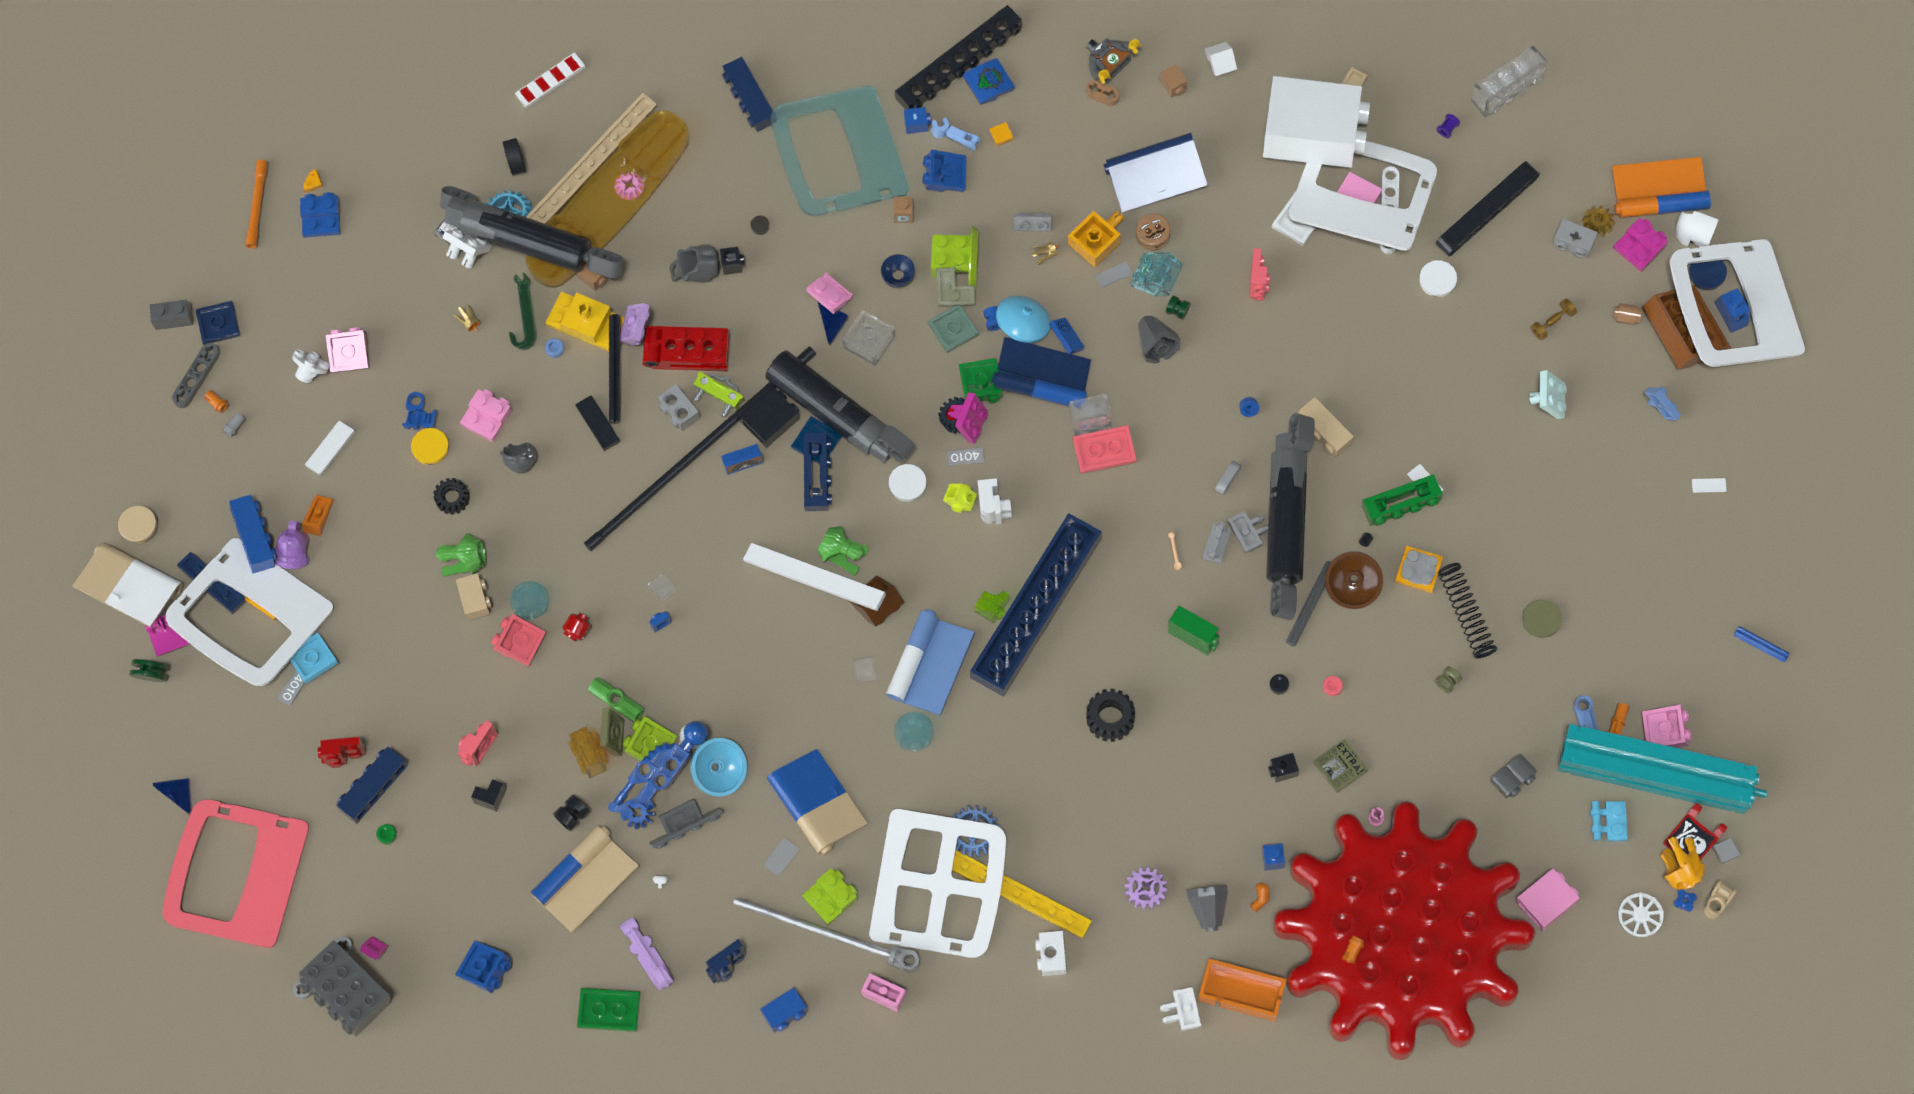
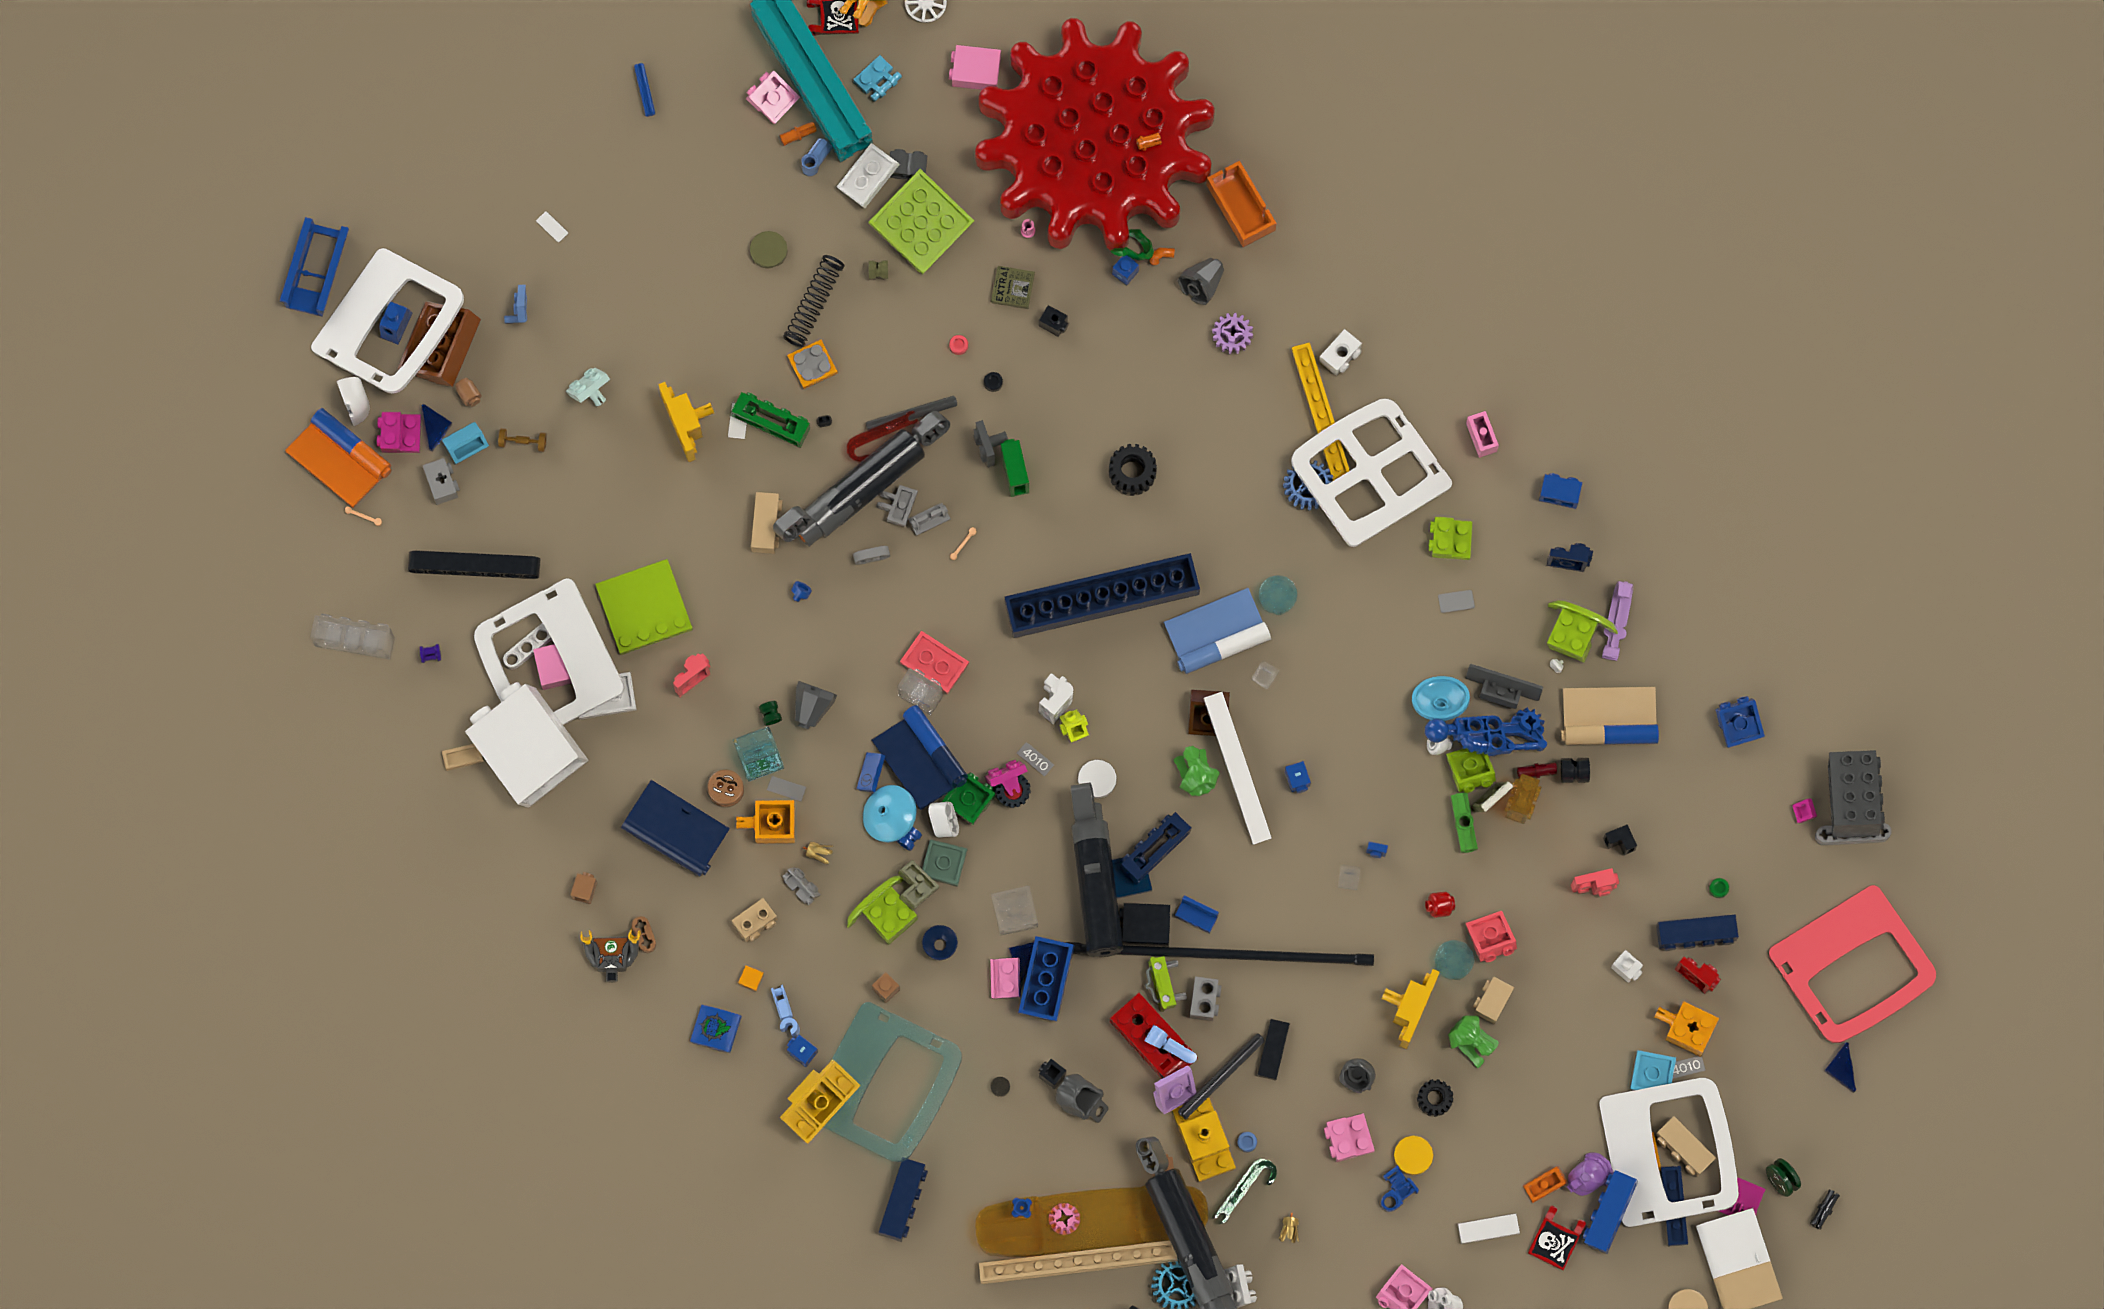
camera: 140 degrees left, 5 degrees up
(100, 682) = (1825, 1209): none -> black pin
(240, 628) = (1684, 1147): none -> tan brick
(274, 483) = (1554, 1242): none -> flag
(321, 706) = (1680, 1023): none -> light orange brick
(399, 712) = (1627, 967): none -> white brick
(527, 535) = (1411, 1005): none -> yellow brick
(599, 788) = (1537, 770): none -> dark red pin
(608, 1010) = (1679, 611): green tile -> none
(661, 150) = (1021, 1202): none -> blue plate
(668, 911) = (1575, 630): none -> lime piece
(678, 339) = (1157, 1038): none -> light blue piece
(766, 616) = (1298, 777): none -> blue brick
(799, 313) = (1046, 978): none -> blue brick
(816, 801) = (1394, 612): door -> none
(867, 89) = (818, 1100): none -> yellow brick
(896, 956) = (1447, 453): flat silver piece -> none
(944, 171) = (824, 987): blue plate -> none
(981, 348) = (943, 819): none -> white beam
(991, 605) = (1132, 627): clear neon green brick -> none
(1005, 17) = (786, 1080): black brick -> none
(1038, 168) = (755, 920): none -> tan brick
(1186, 1009) = (1288, 232): white hinge -> none
(1221, 58) = (530, 871): white piece -> none
(1232, 628) = (987, 443): none -> dark grey plate
(1269, 880) = (1145, 242): none -> green helmet
(1317, 563) = (876, 433): none -> clear red piece
(1343, 295) = (644, 606): none -> lime plate
(1354, 593) = (867, 394): reddish brown dish -> none
(1438, 278) = (565, 551): white tile -> none
(1457, 742) = (921, 221): none -> lime plate
(1460, 435) = (684, 418): none -> yellow brick
(1532, 738) = (868, 175): none -> white tile
(1585, 175) = (377, 521): none -> light nougat hinge
(1589, 280) = (465, 442): none -> medium azure brick
(1603, 223) = (410, 484): clear yellow gear -> none
(1623, 273) = (435, 425): none -> clear blue tile
(1708, 274) = (382, 361): dark blue tile -> none
(1816, 266) = (304, 299): none -> blue piece

